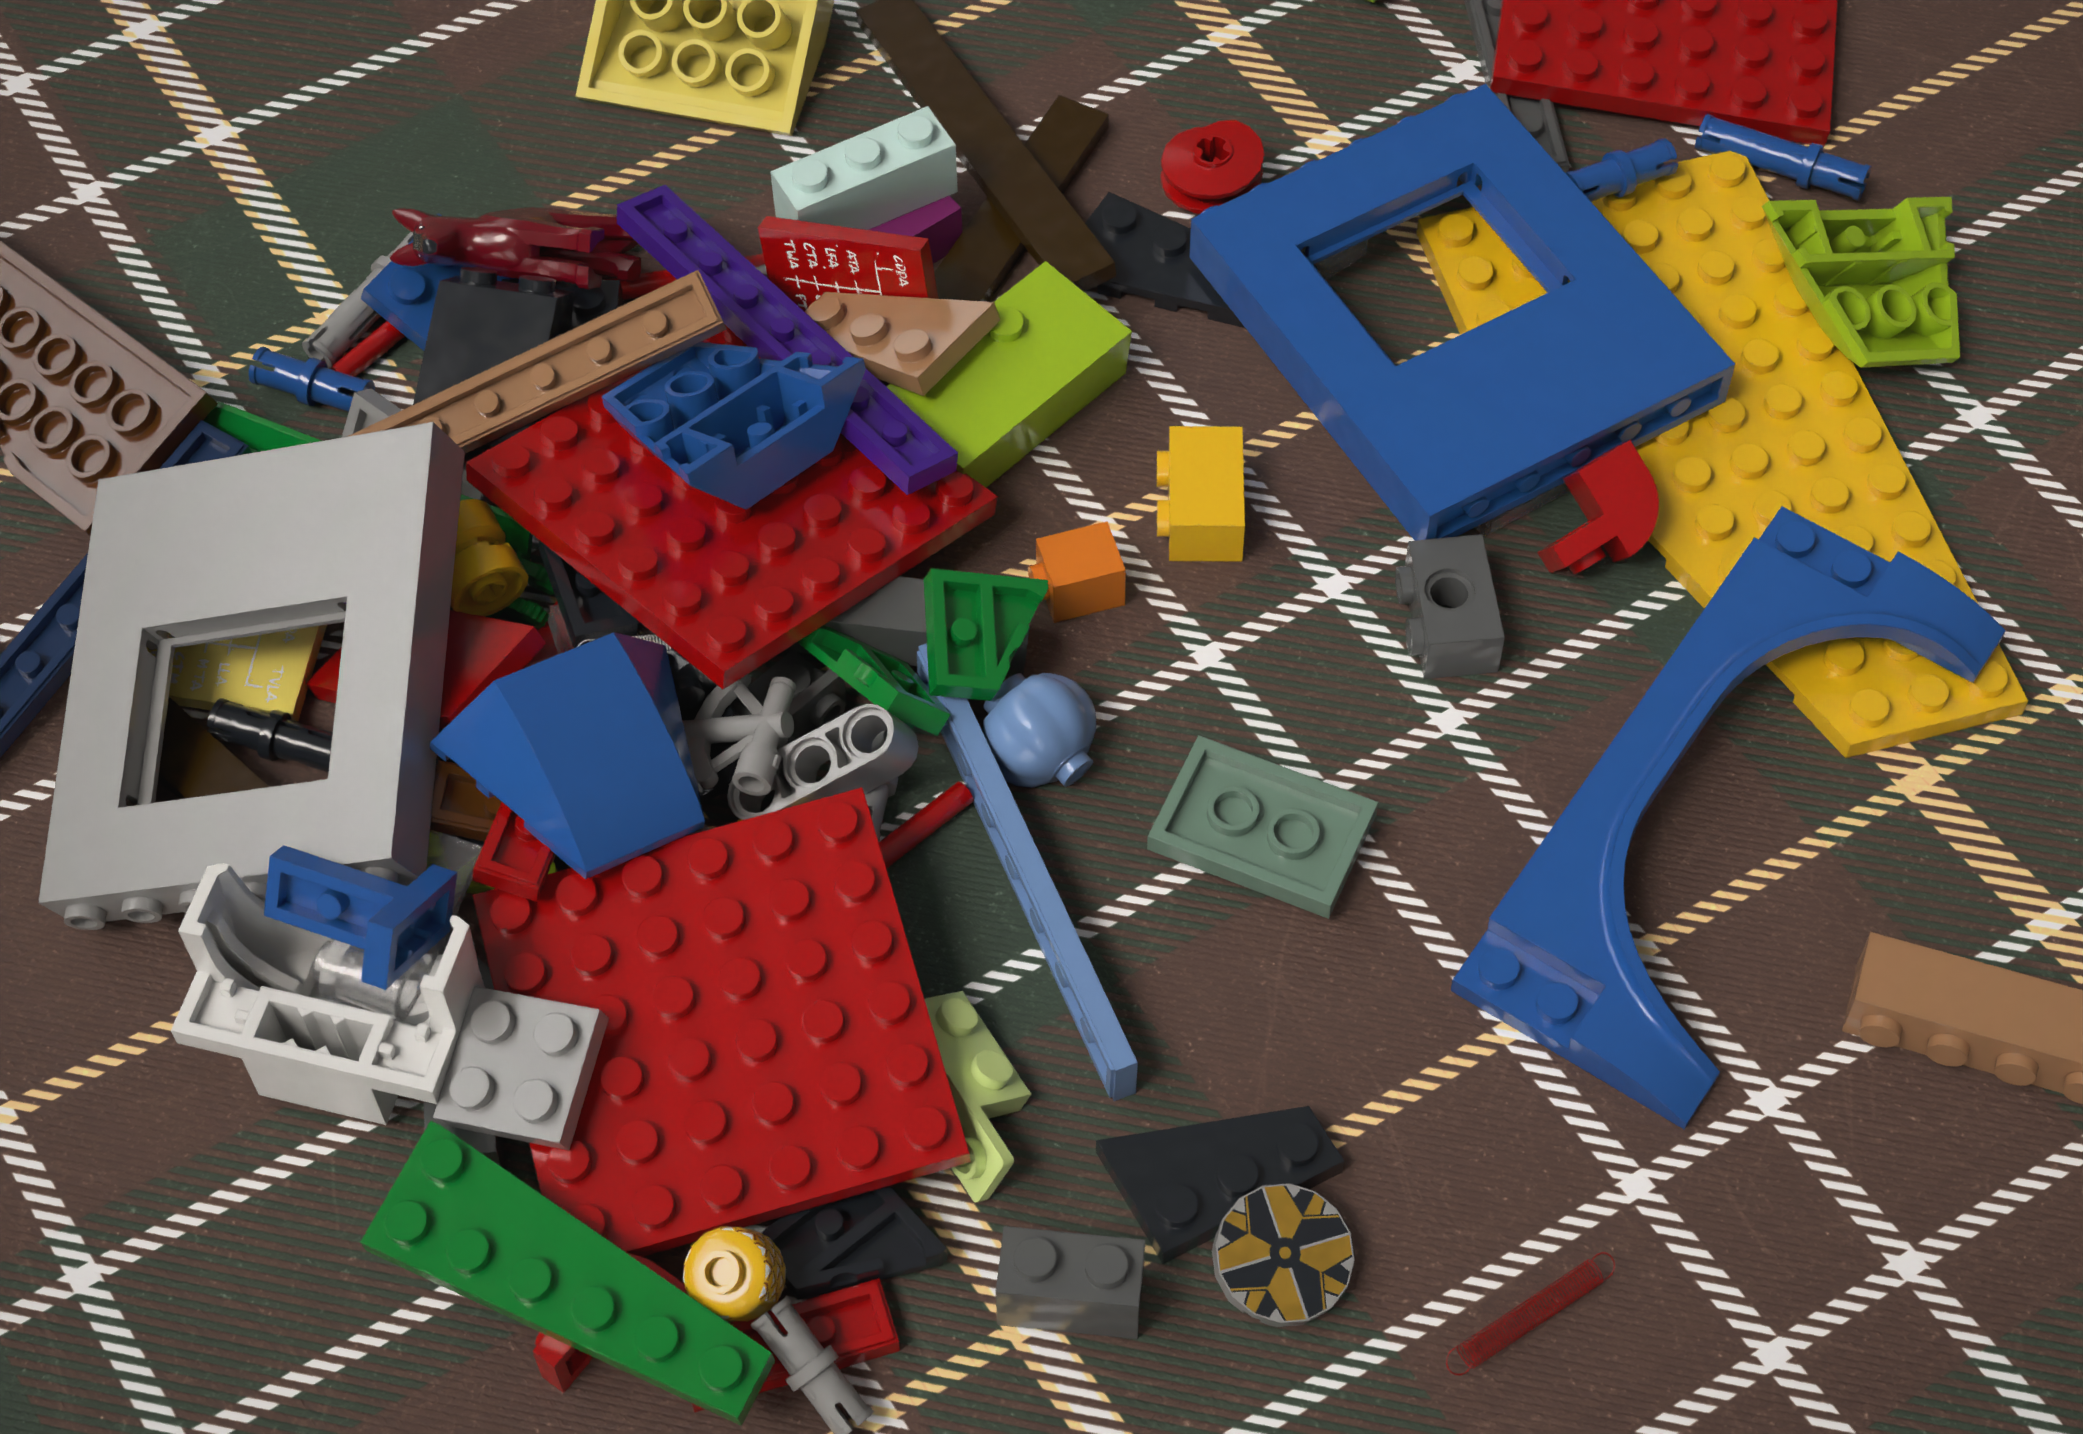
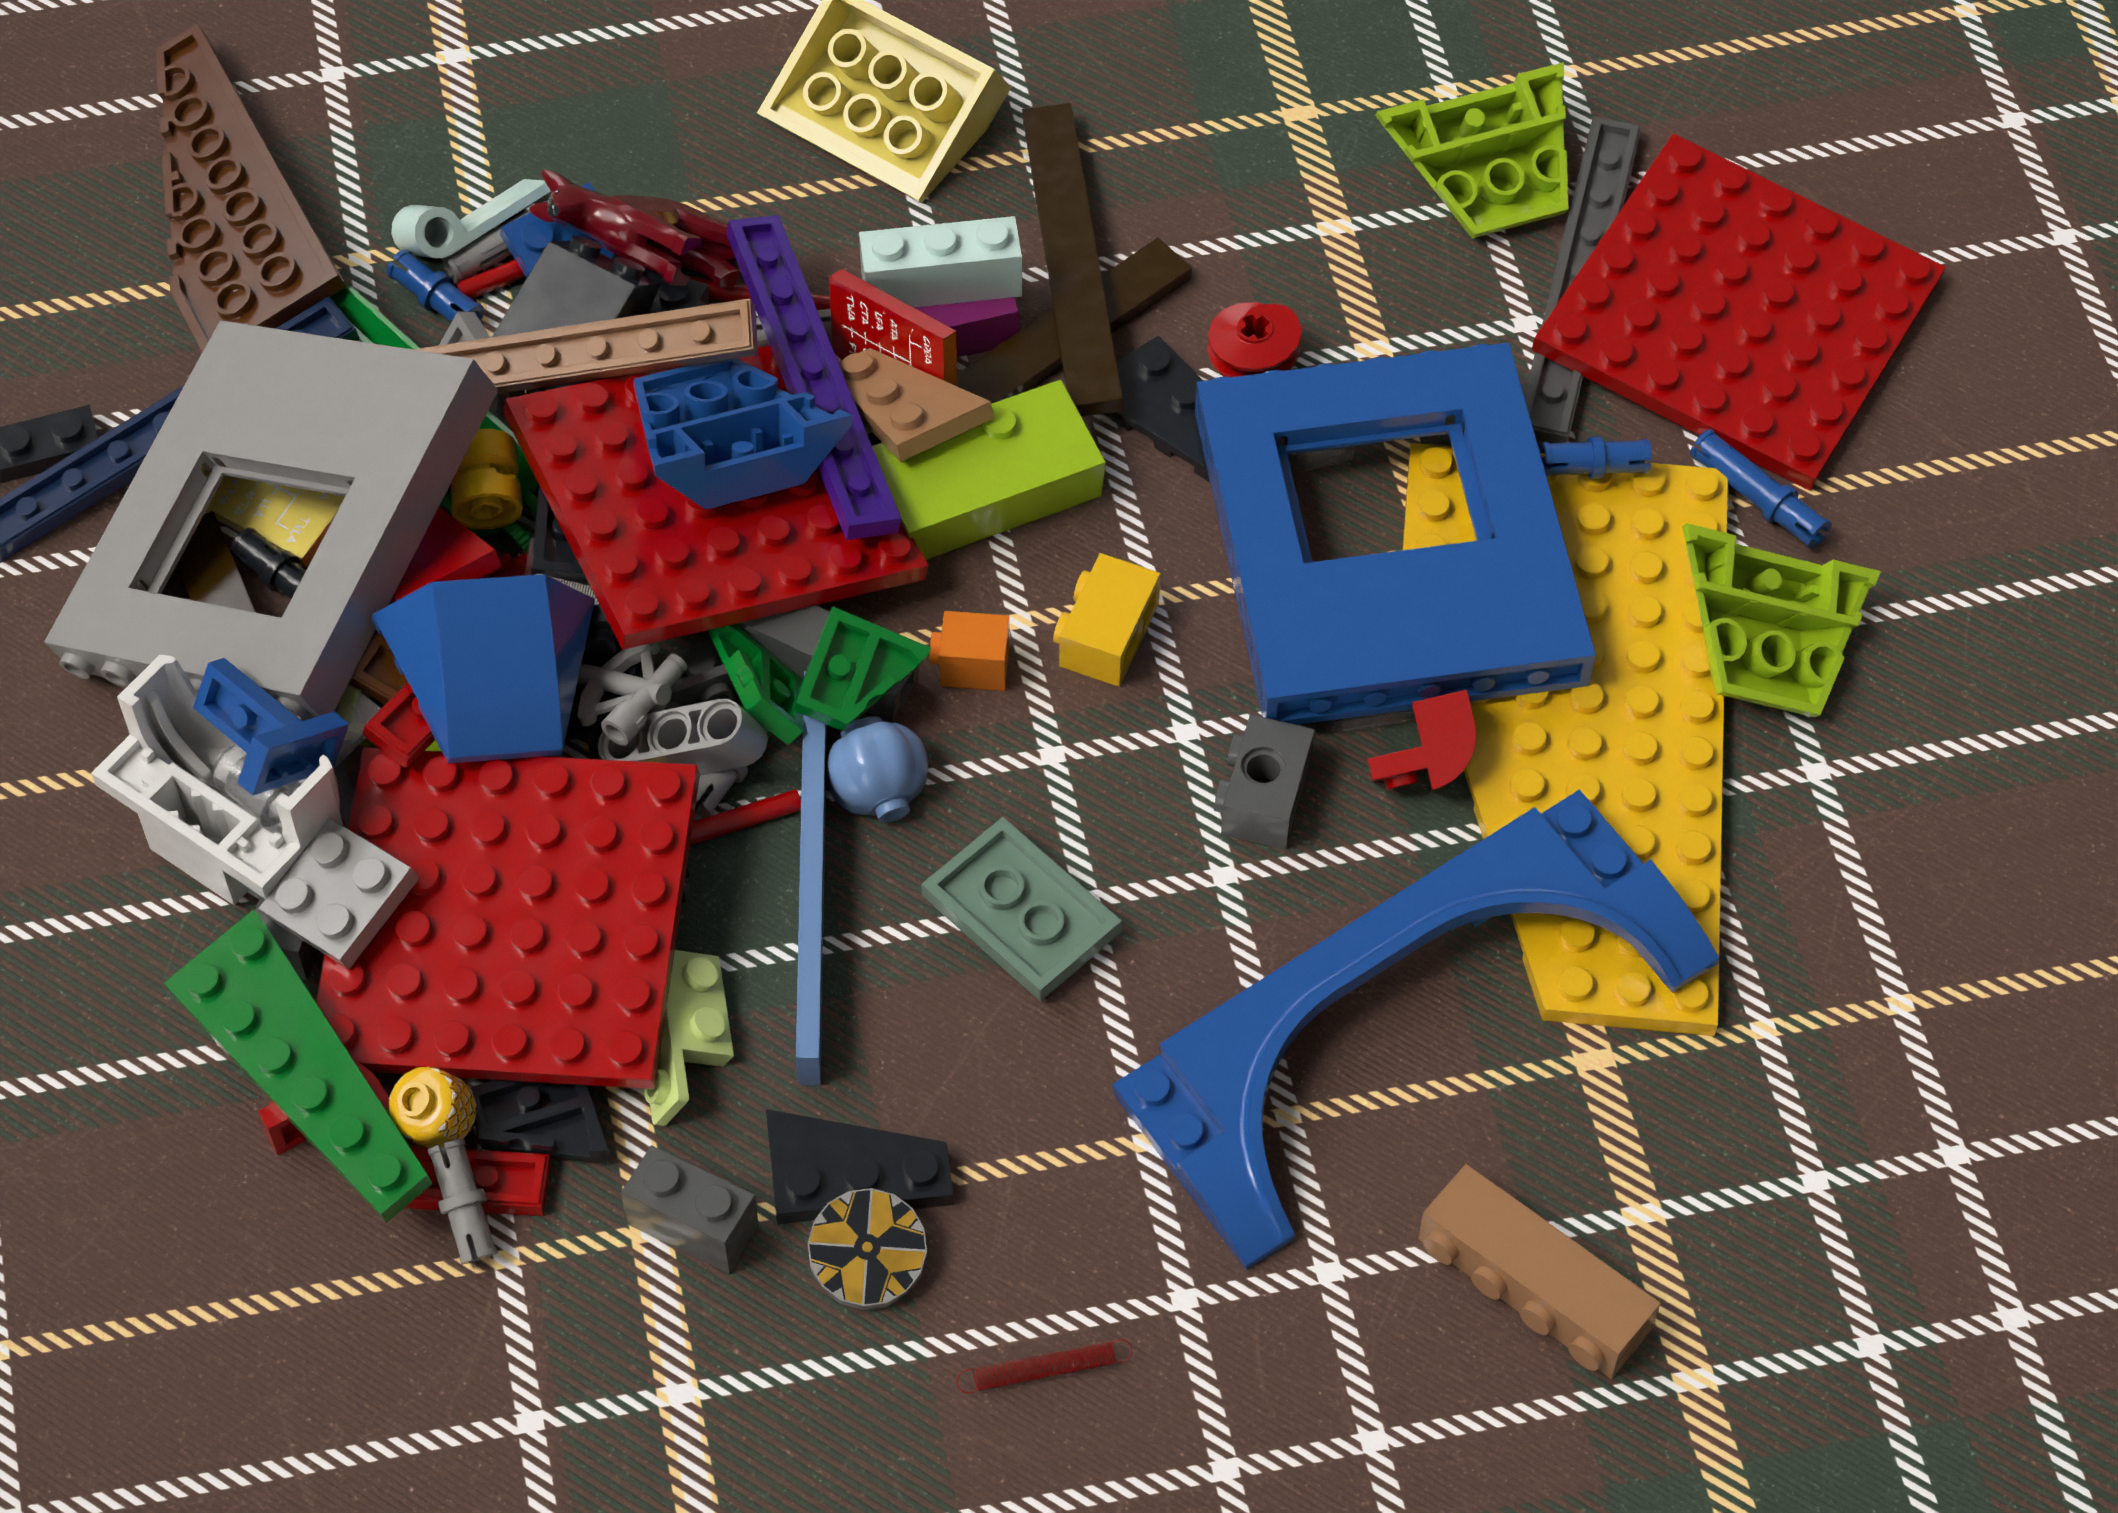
camera: 20 degrees right, 0 degrees up
(297, 316) = (440, 233): none -> light aqua door

